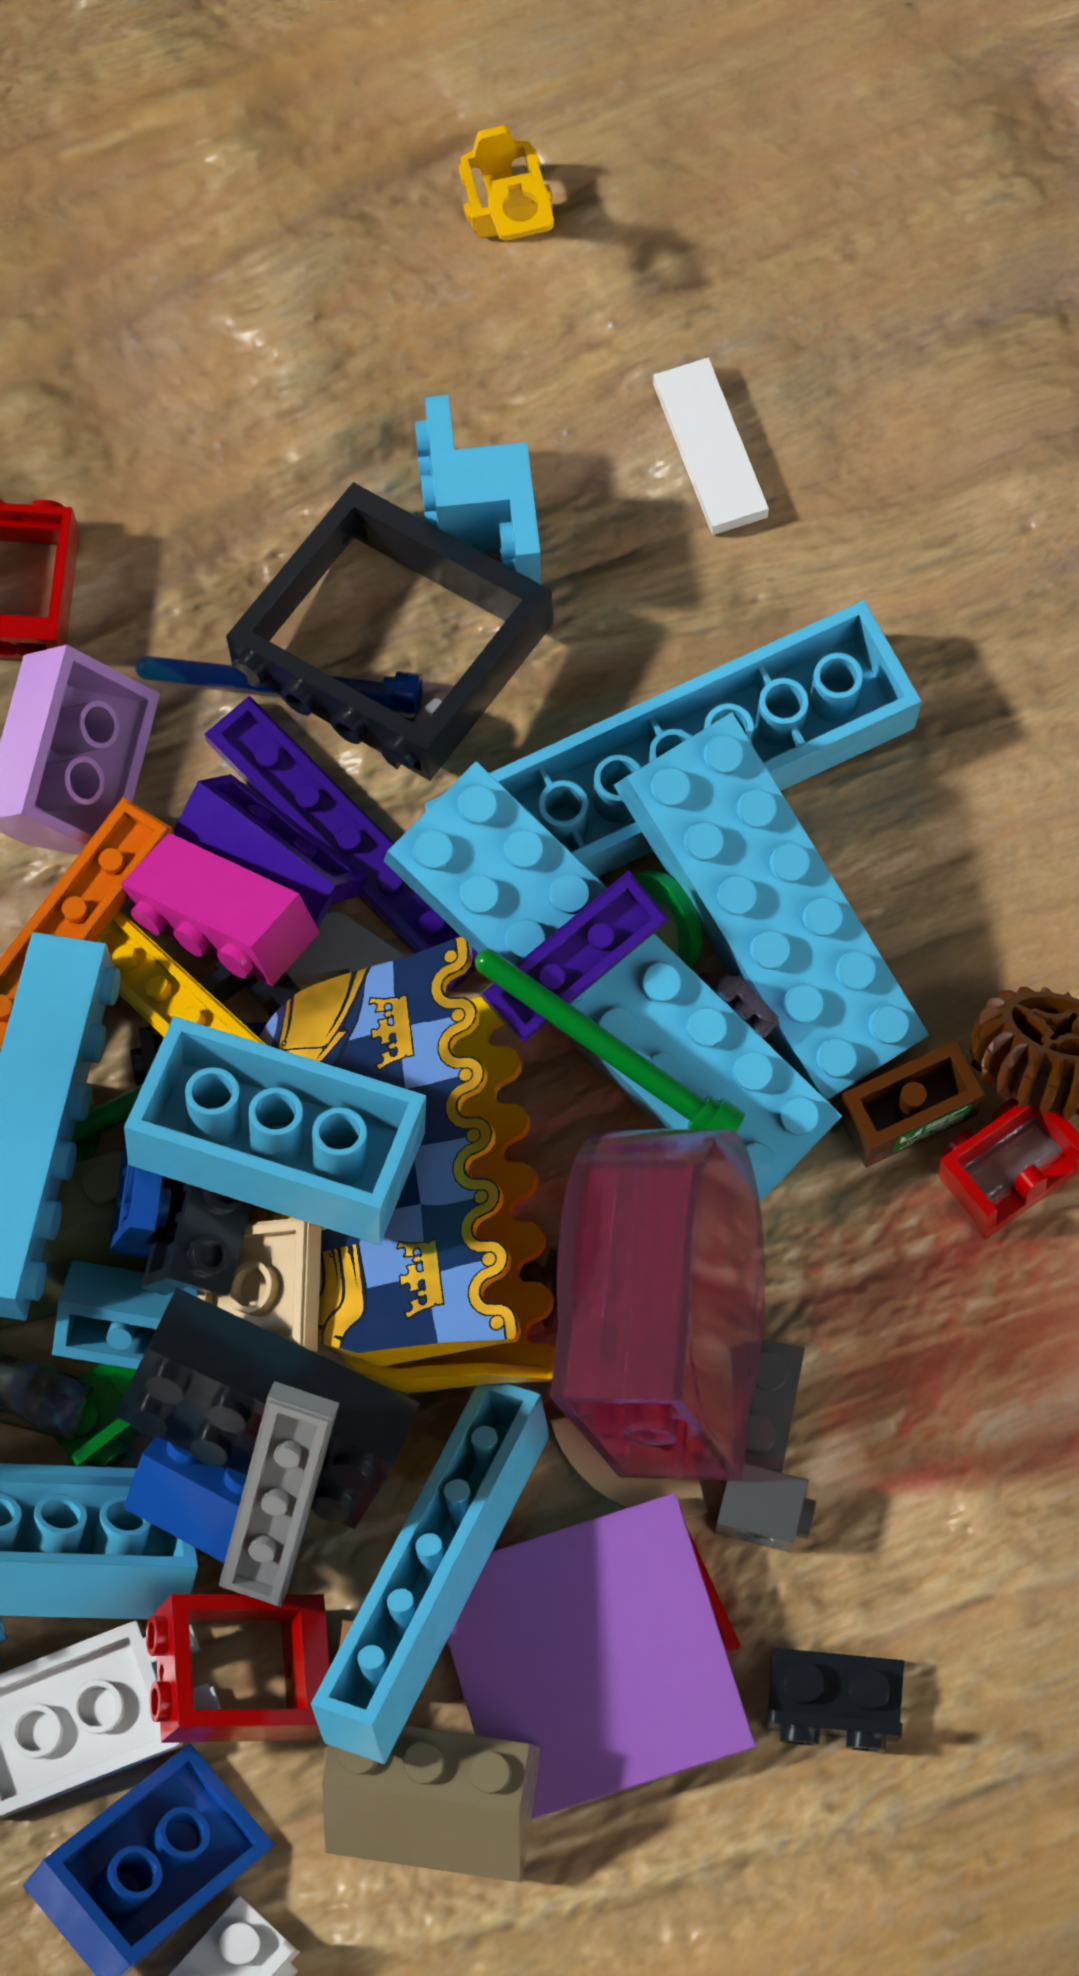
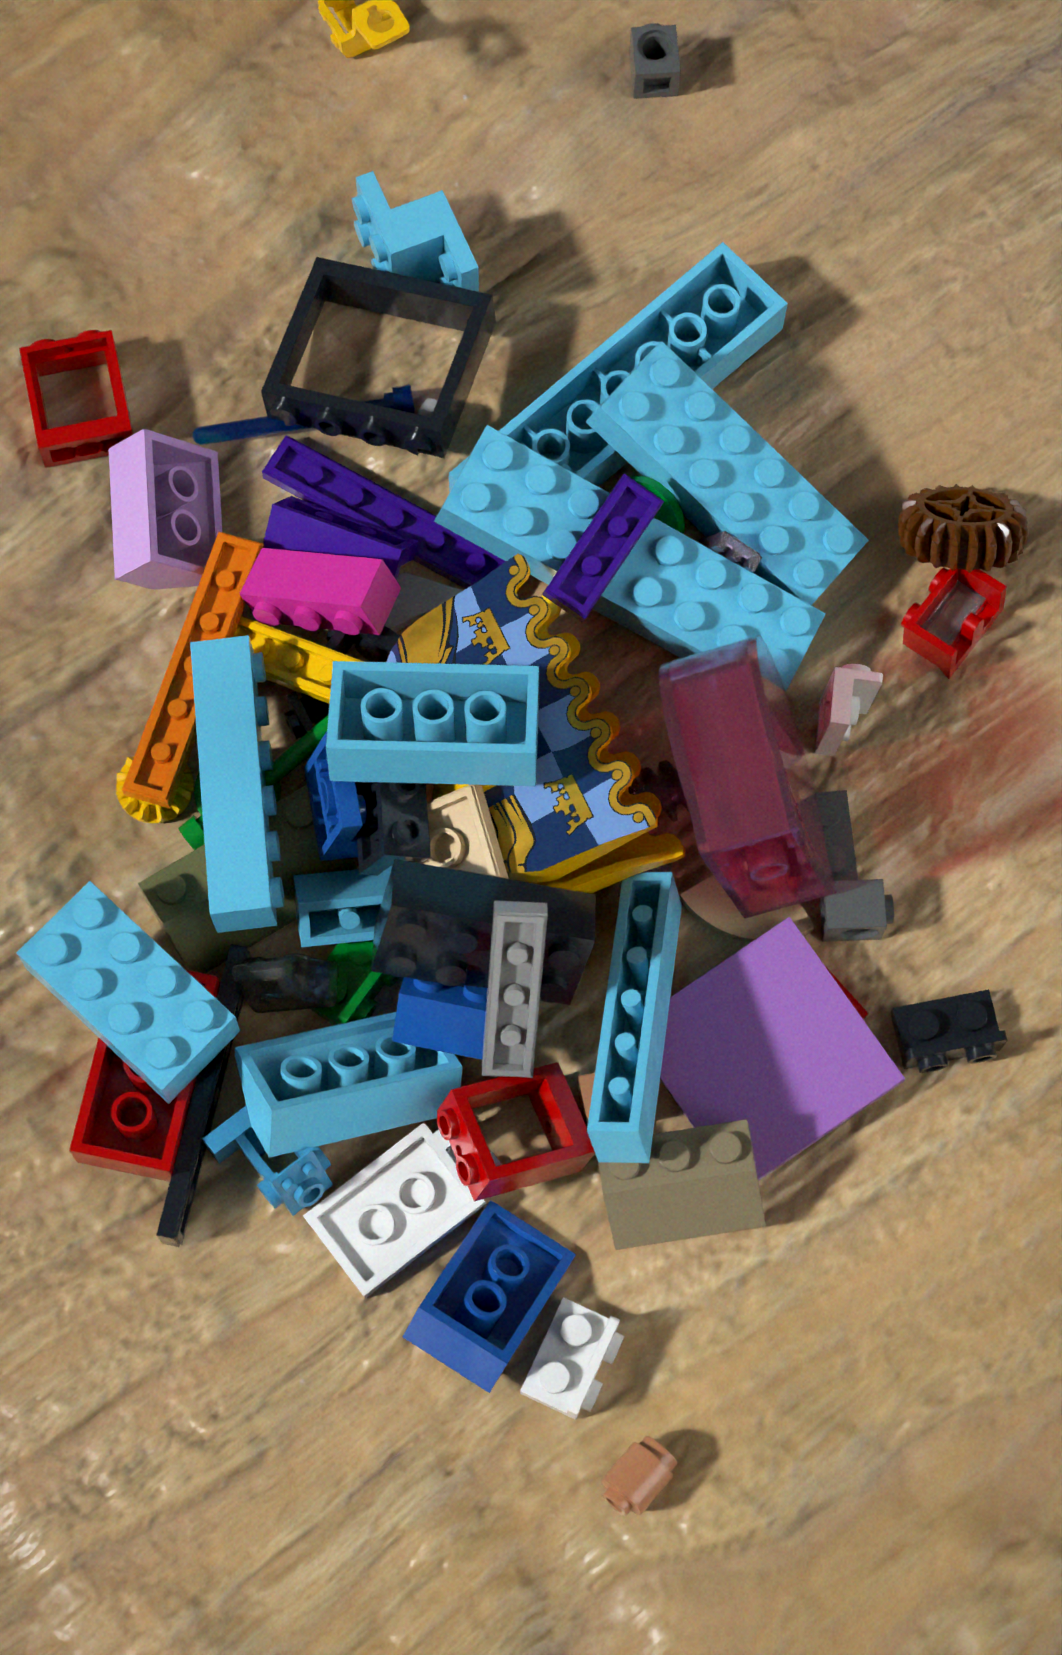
camera: 20 degrees left, 0 degrees up
(699, 1112) = (645, 603): green piece -> none
(710, 446) = (568, 165): white tile -> none
(836, 1224) = (844, 698): none -> white bracket
(855, 362) = (650, 76): none -> dark grey brick
(910, 1103) = (869, 593): reddish brown brick -> none

